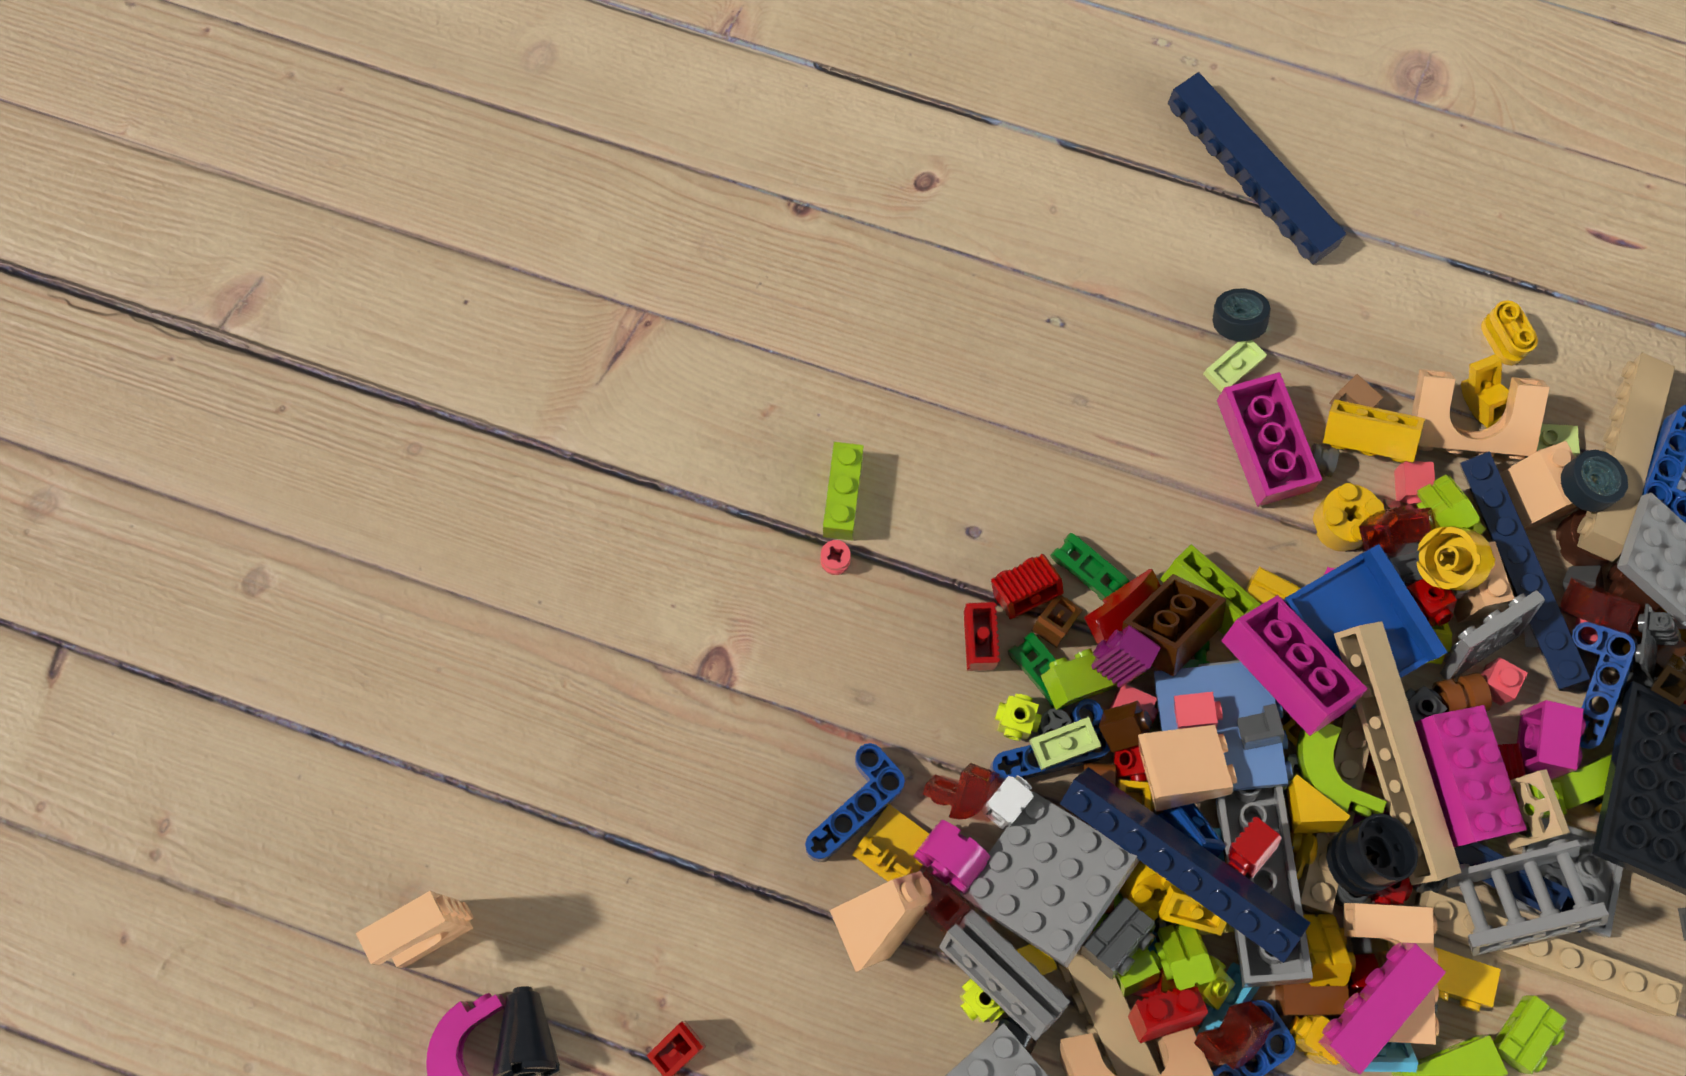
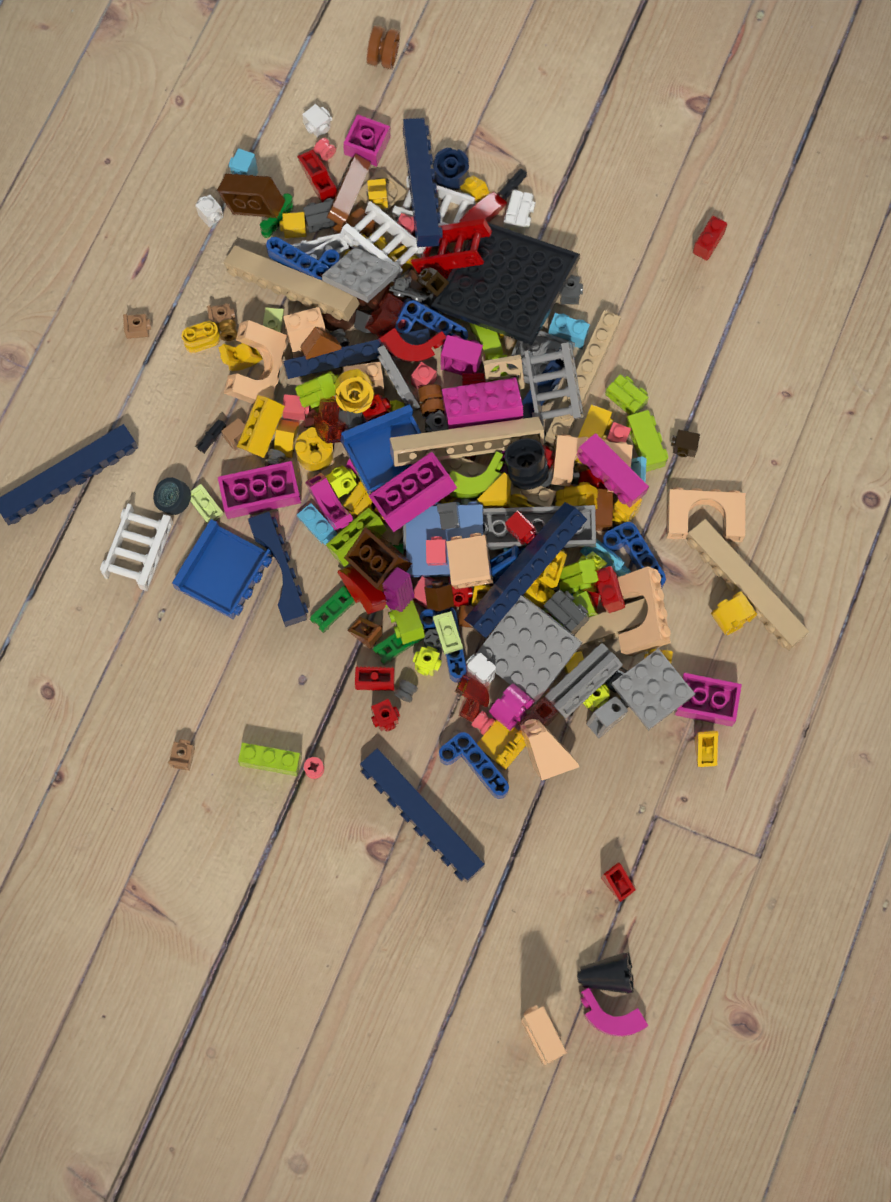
camera: 85 degrees left, 0 degrees up
(769, 725) = (421, 815): none -> dark blue brick
(837, 375) = (181, 762): none -> medium nougat brick
(925, 813) = (483, 722): none -> coral wheel
(930, 649) = (385, 709): none -> red brick
(945, 1015) = (607, 716): none -> light grey torso
(967, 687) = (406, 691): none -> dark grey wheel
(1027, 586) = (343, 648): red brick -> none
(1091, 501) = (265, 534): none -> dark blue arch
(1134, 398) = (222, 570): none -> blue panel
(1155, 302) = (149, 560): none -> white fence
(1226, 532) = (317, 524): none -> medium azure hinge
(1238, 1037) = (624, 552): clear red brick -> none
(1263, 544) = (328, 502): none -> dark pink arch
(1301, 562) = (341, 480): none -> neon yellow brick
(1346, 362) = (210, 436): none -> black axle
(1364, 471) = (286, 437): none -> yellow slope
(1454, 1021) = (618, 433): none -> coral brick
(1509, 239) = (136, 326): none -> medium nougat brick
(1529, 504) = (319, 343): none -> dark orange slope
(1532, 369) = (227, 330): none -> pearl gold wheel
(1540, 644) = (402, 350): none -> red arch
(1545, 540) = (340, 336): none -> dark grey wheel
(1550, 360) = (220, 313): none -> medium nougat brick
(1594, 480) = (318, 300): black wheel -> none
(1634, 925) = (569, 329): none -> medium azure brick

